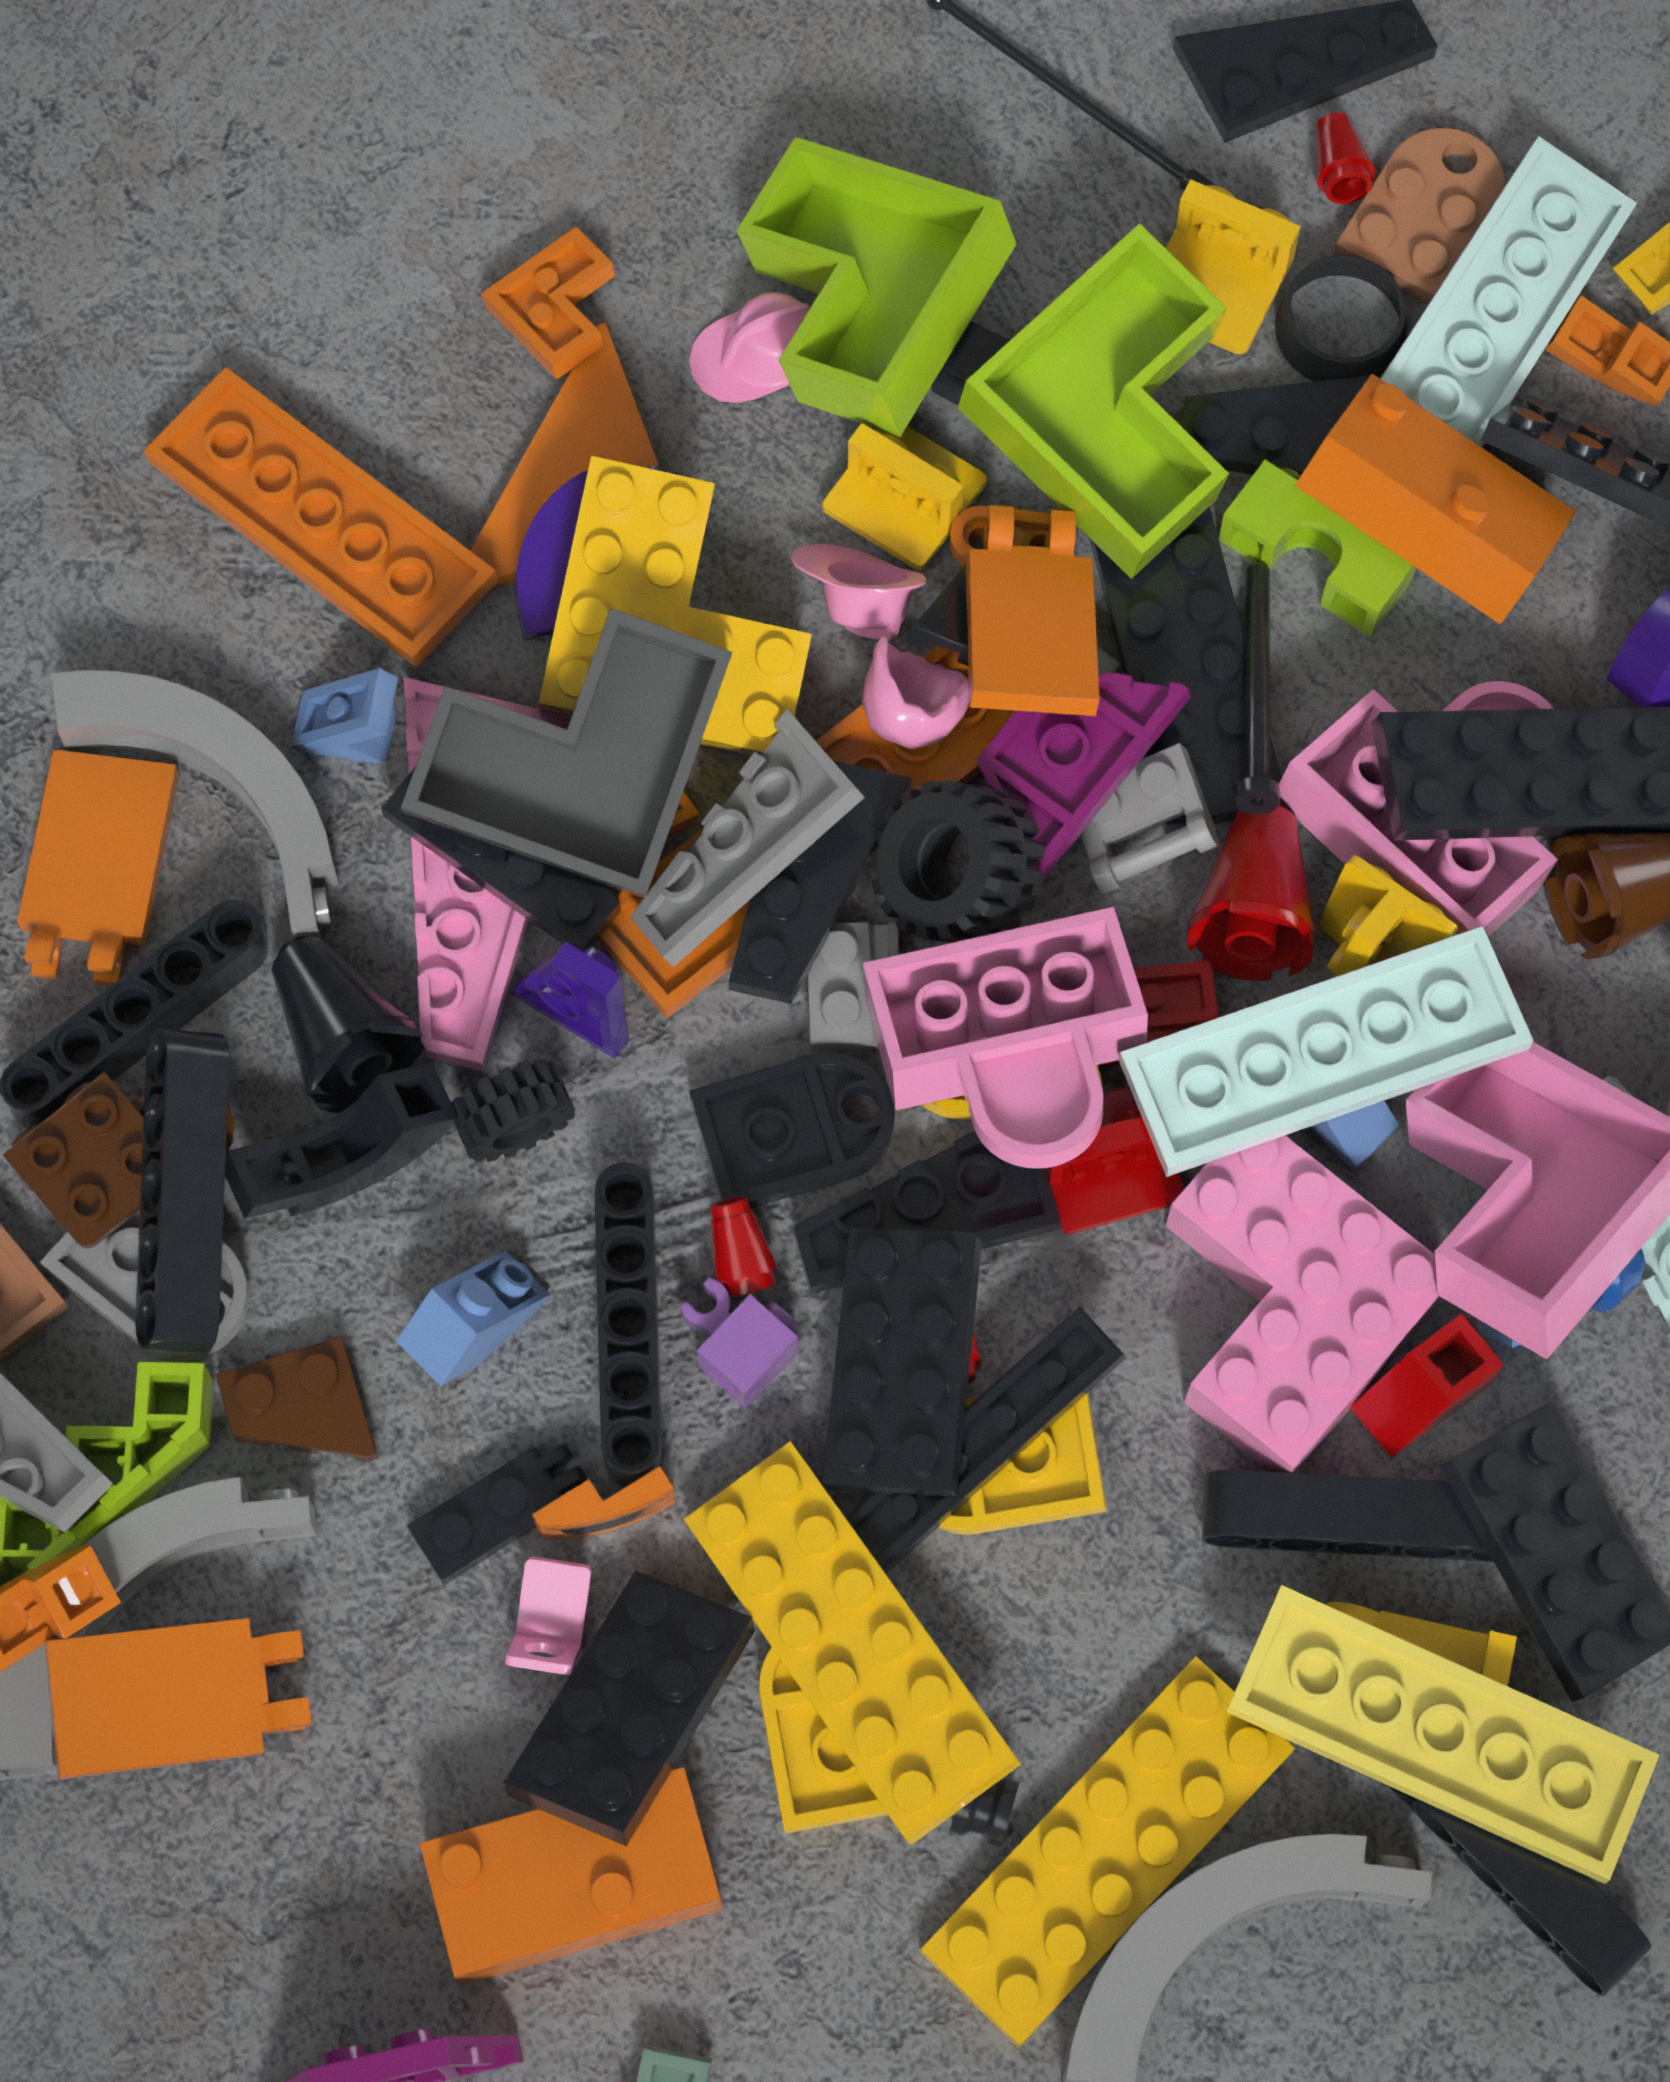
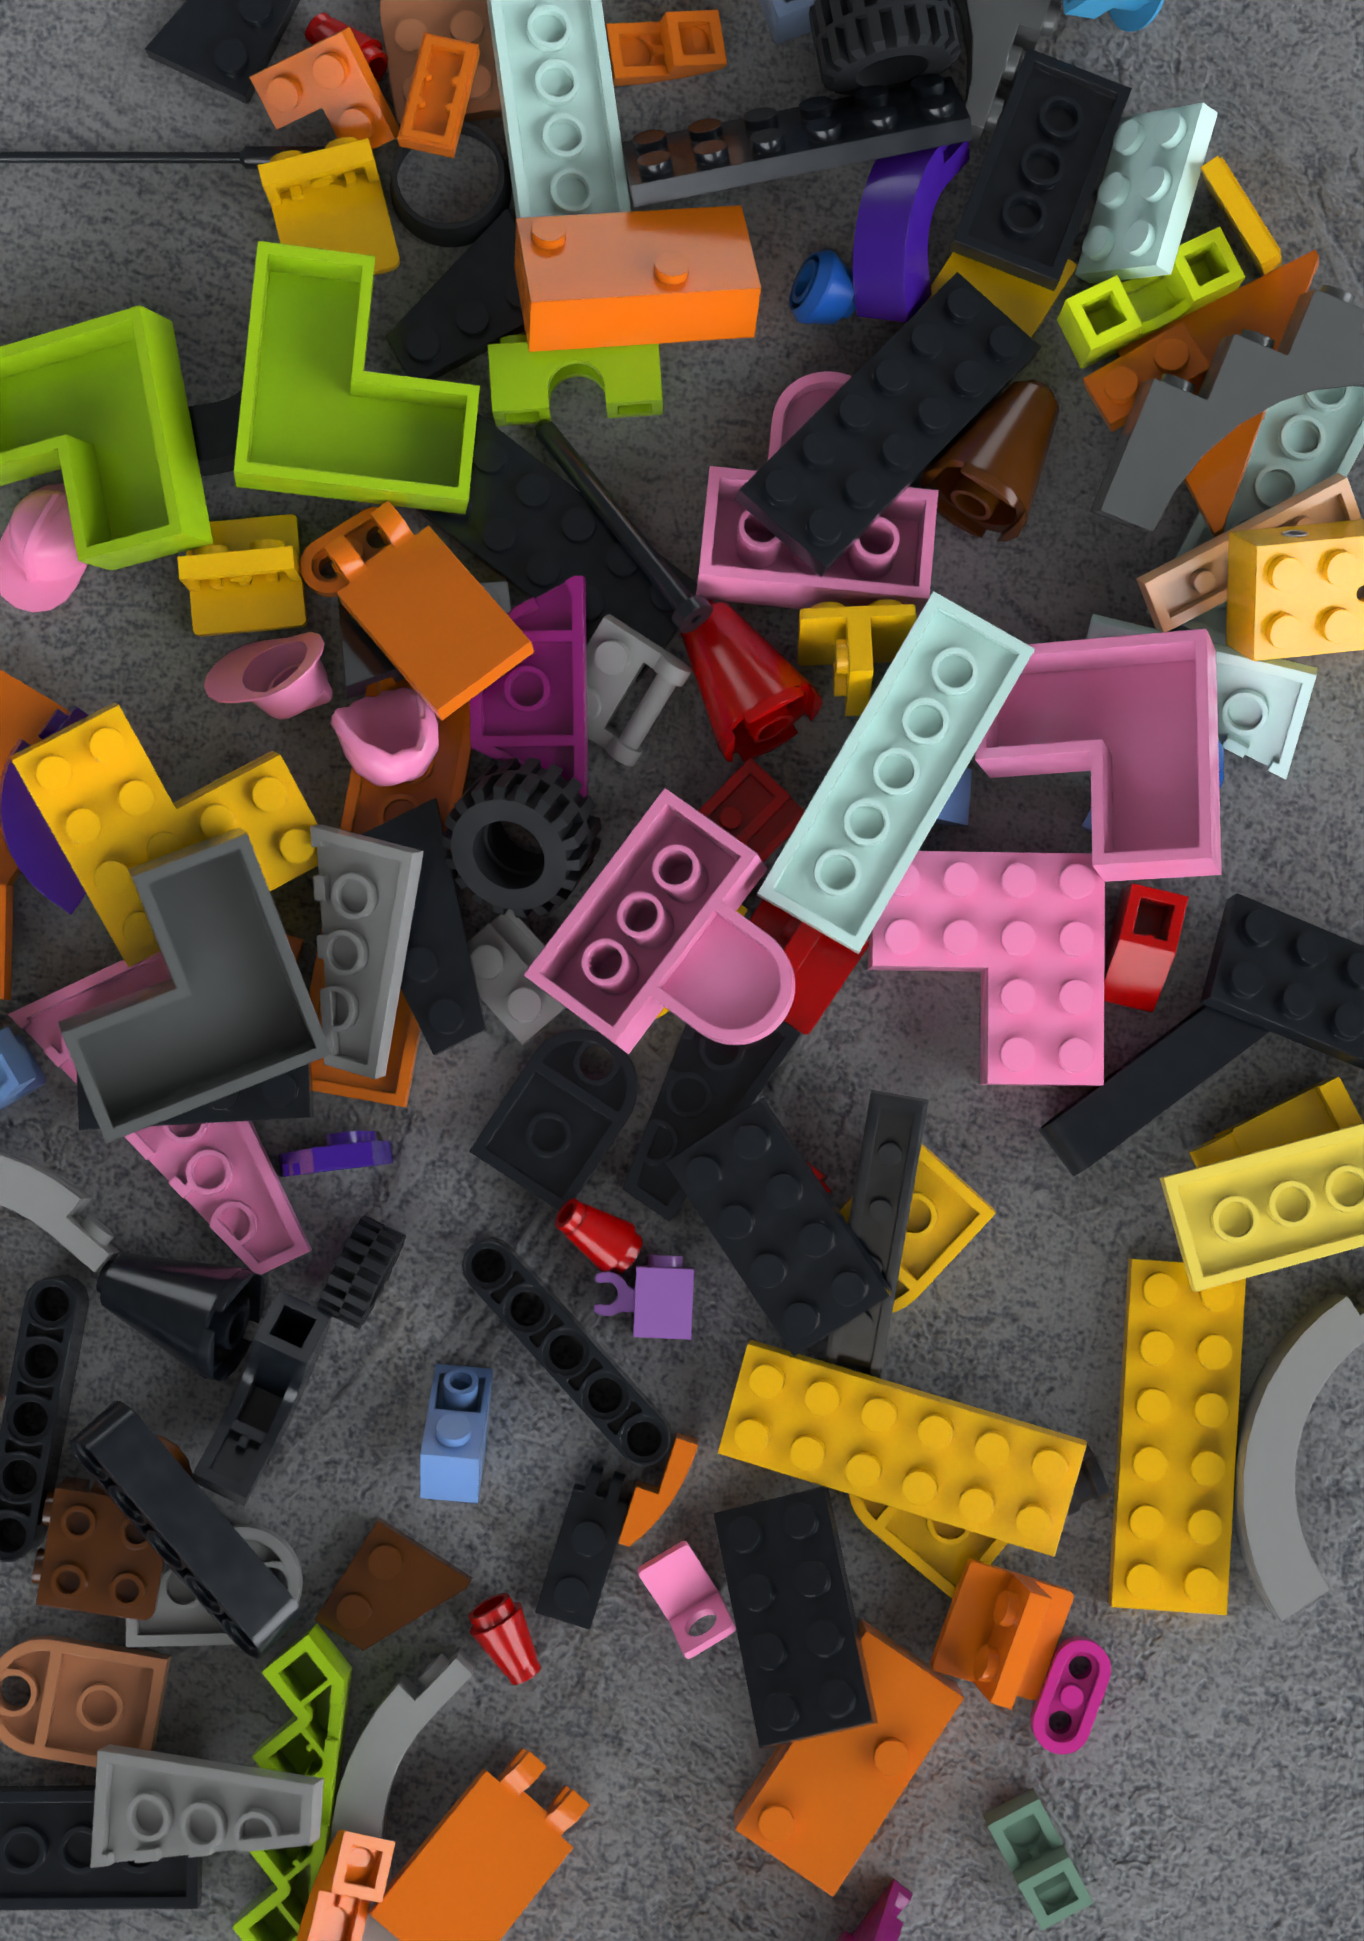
camera: 40 degrees left, 15 degrees up
(363, 1526) = (505, 1637): none -> red cone
(804, 1883) = (1001, 1632): none -> orange bracket
(814, 1994) = (1071, 1693): none -> dark pink plate
(1309, 164) = (331, 78): none -> orange plate
(1389, 241) = (438, 95): none -> orange plate
(1593, 636) = (823, 290): none -> blue cone

